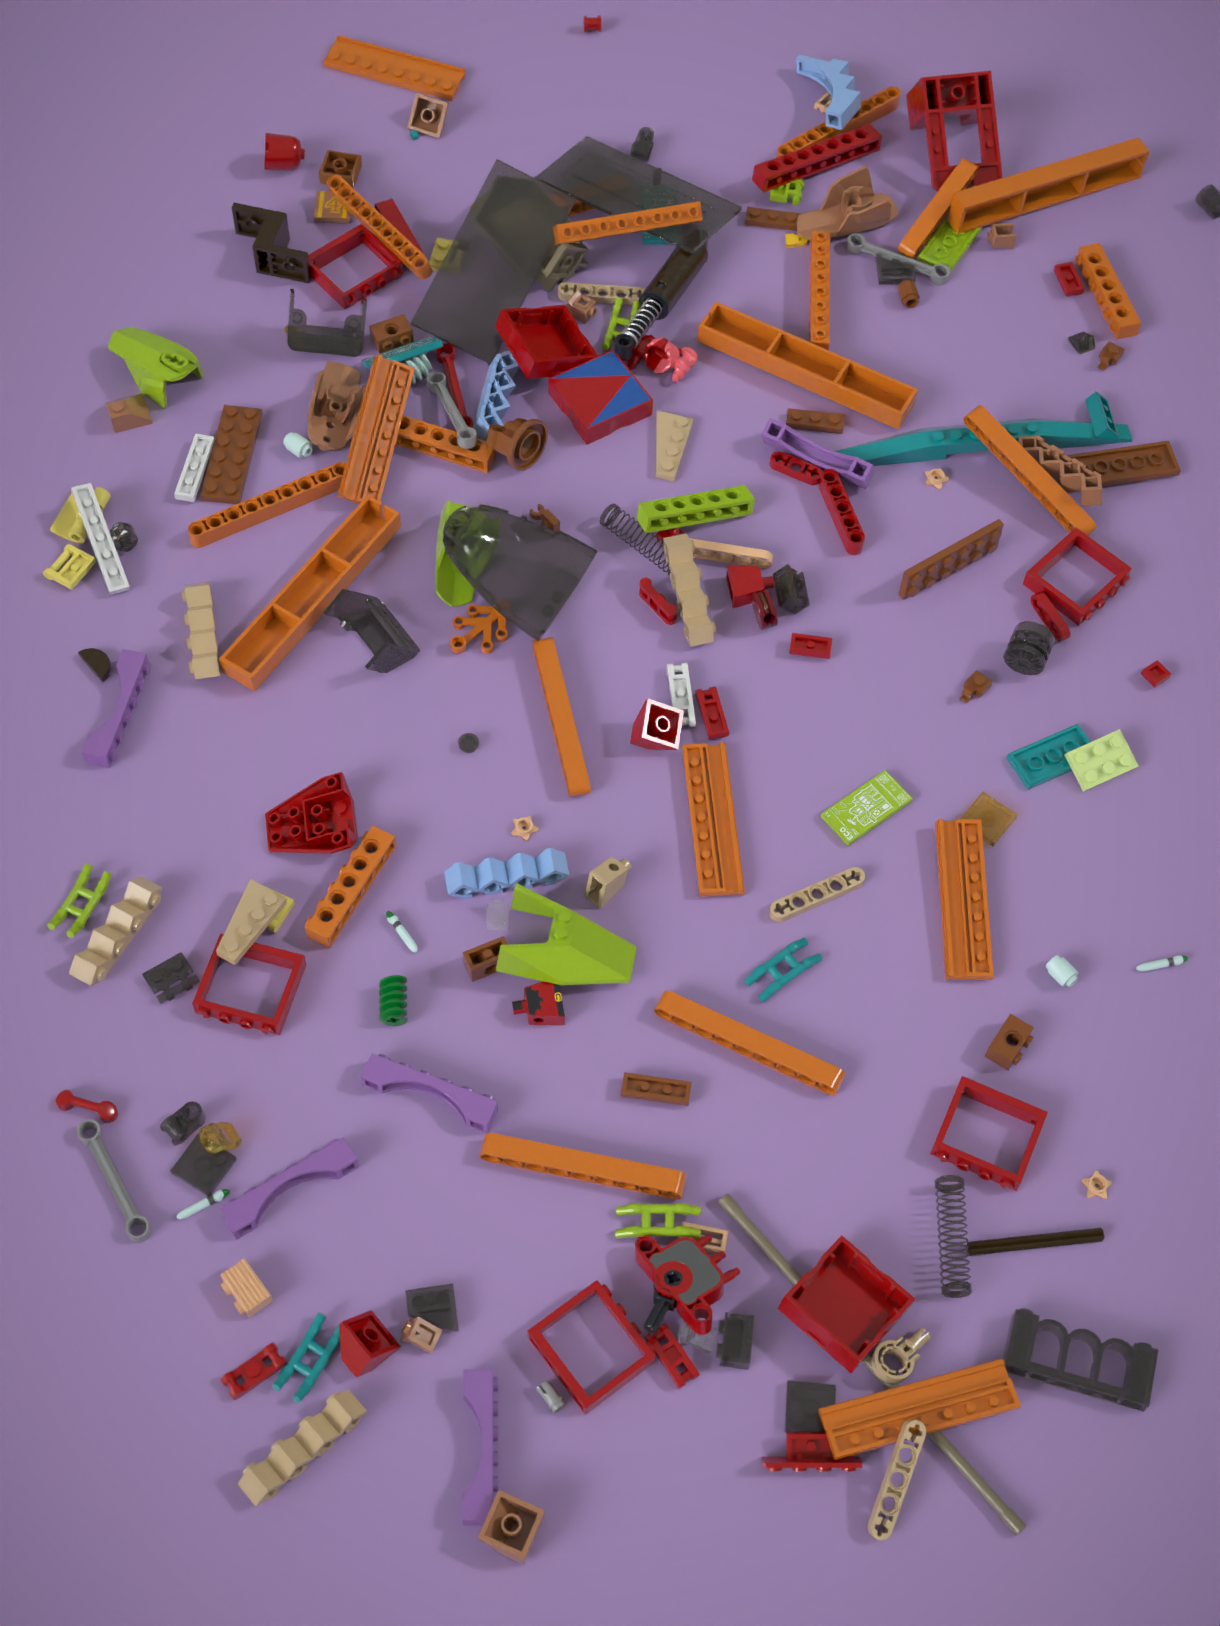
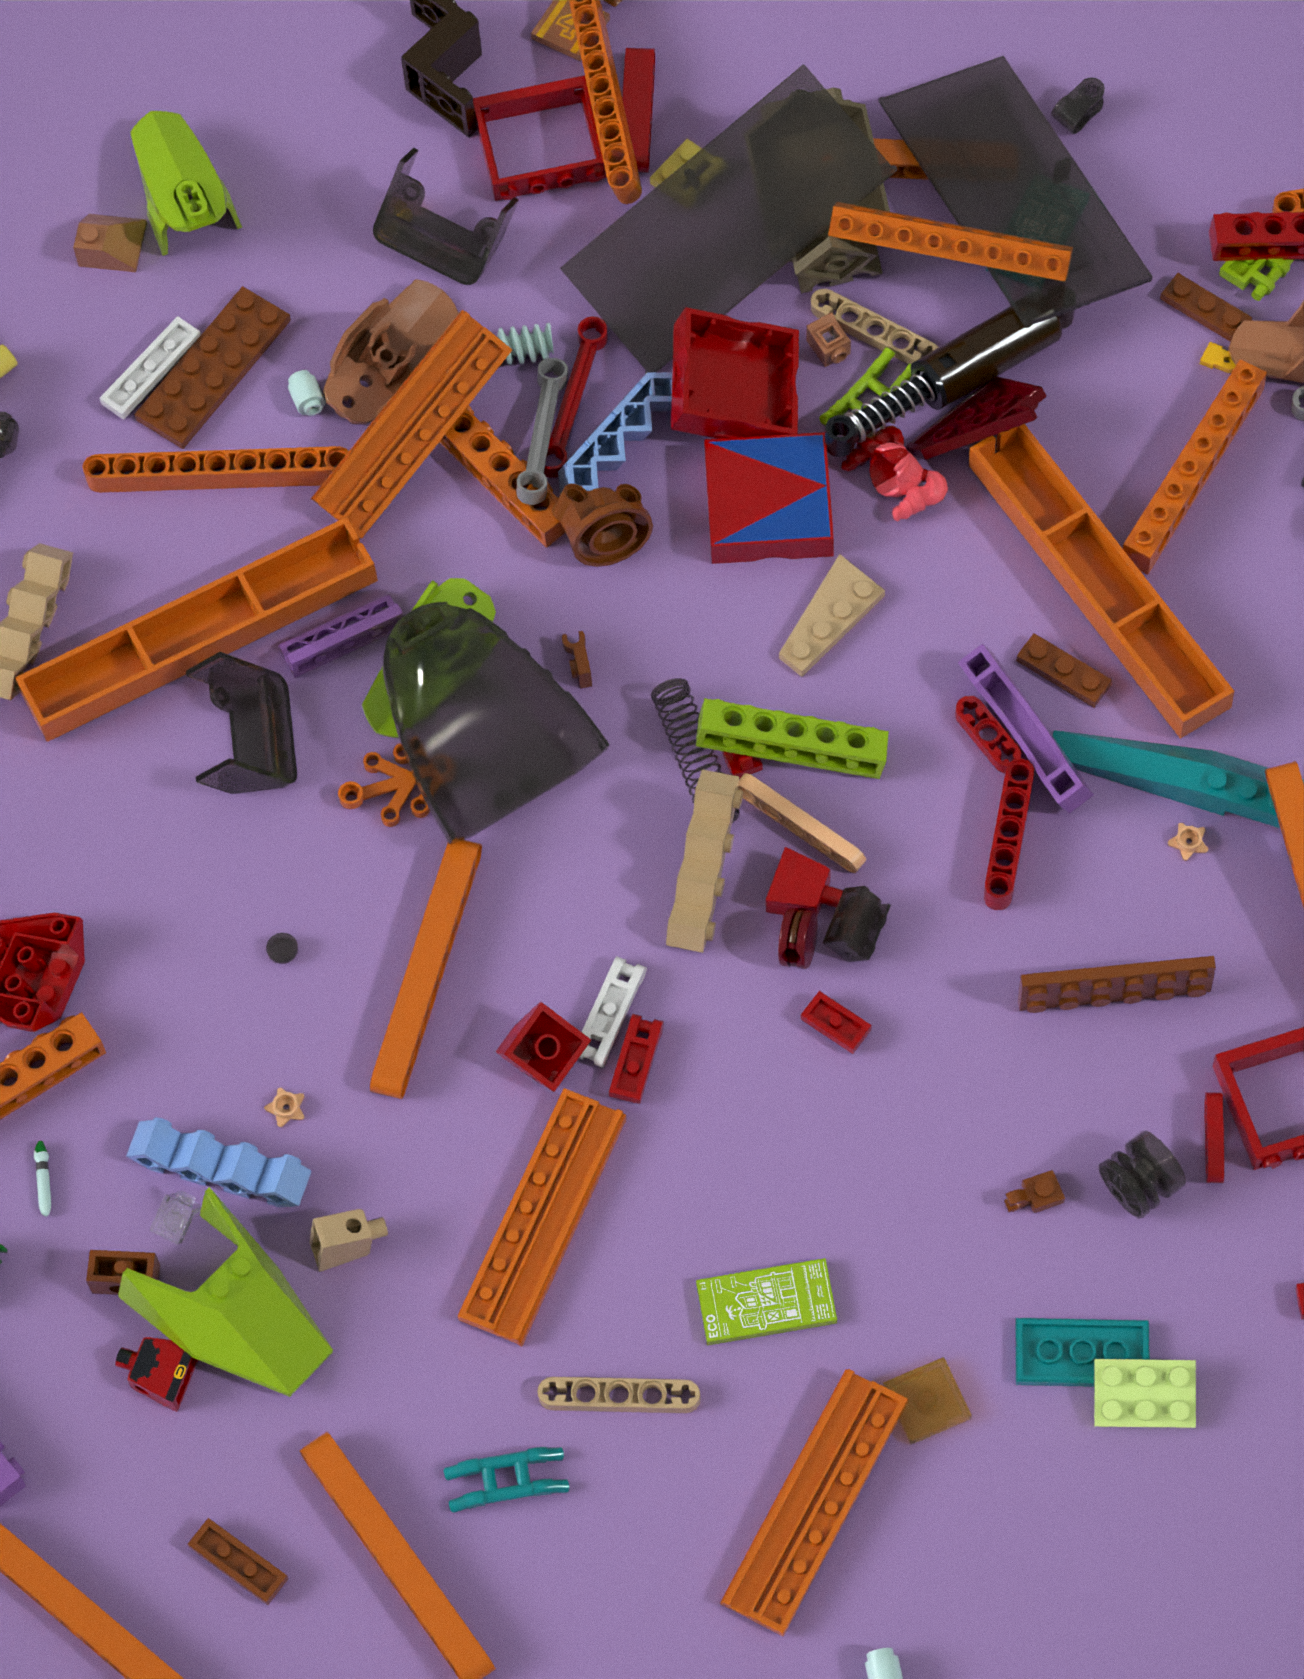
camera: 35 degrees right, 5 degrees up
(391, 333) = (522, 260): dark orange brick -> none
(401, 565) = (341, 640): none -> medium lavender fence
(407, 351) = (527, 309): teal tile -> none
(657, 602) = (660, 855): red plate -> none
(693, 307) = (984, 413): none -> dark red wing

